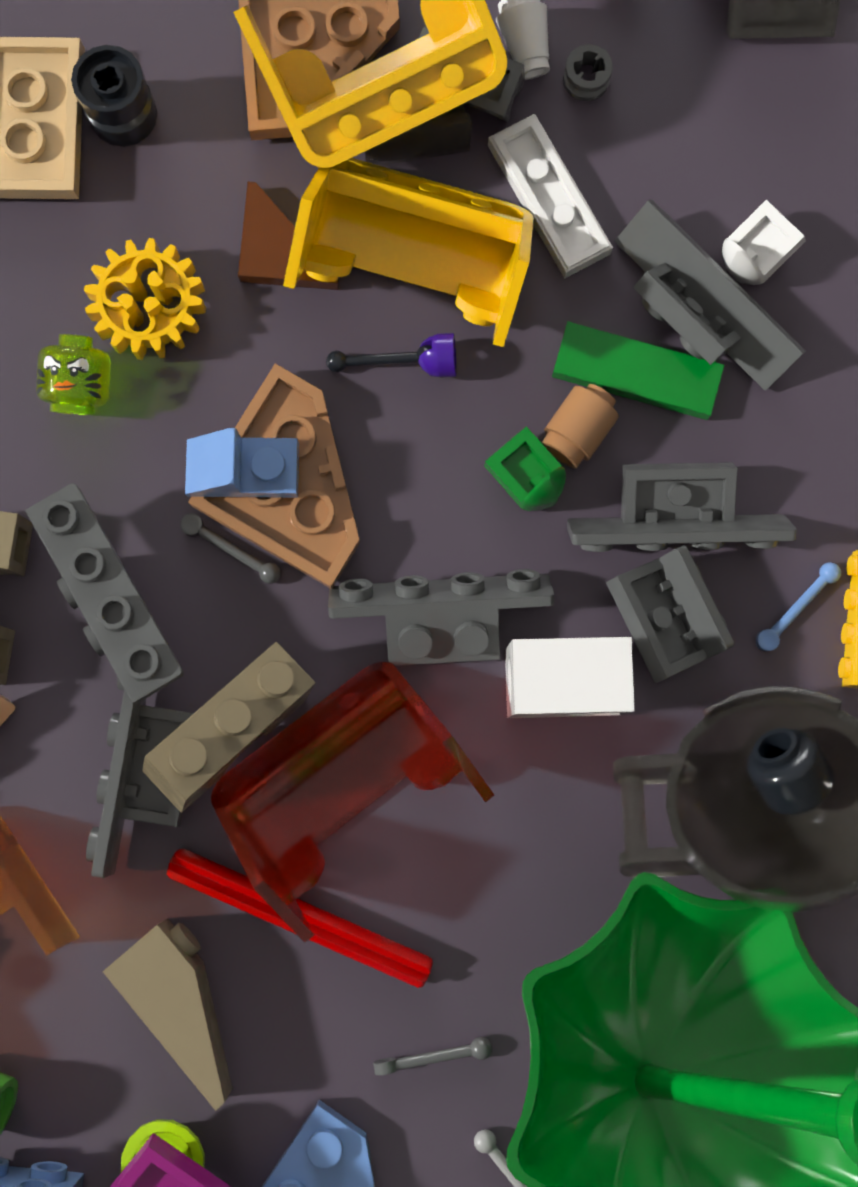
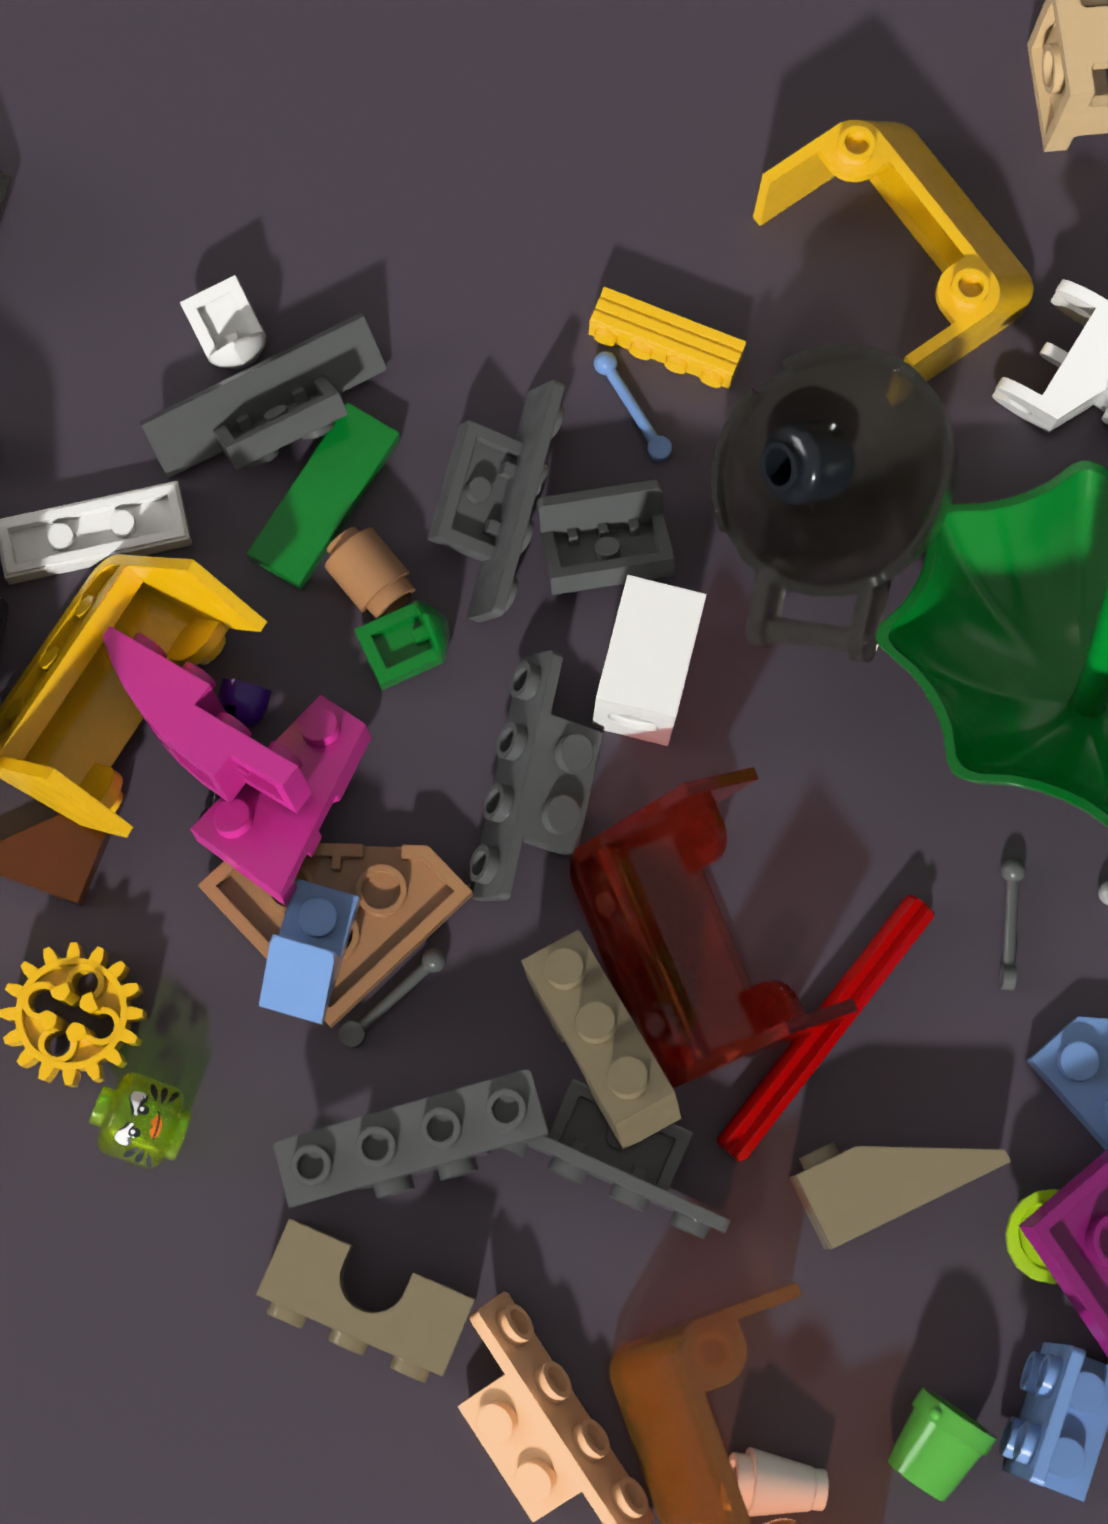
camera: 75 degrees left, 5 degrees down
(361, 408) = (266, 837): none -> dark pink wing
(399, 314) = (197, 730): none -> dark pink slope

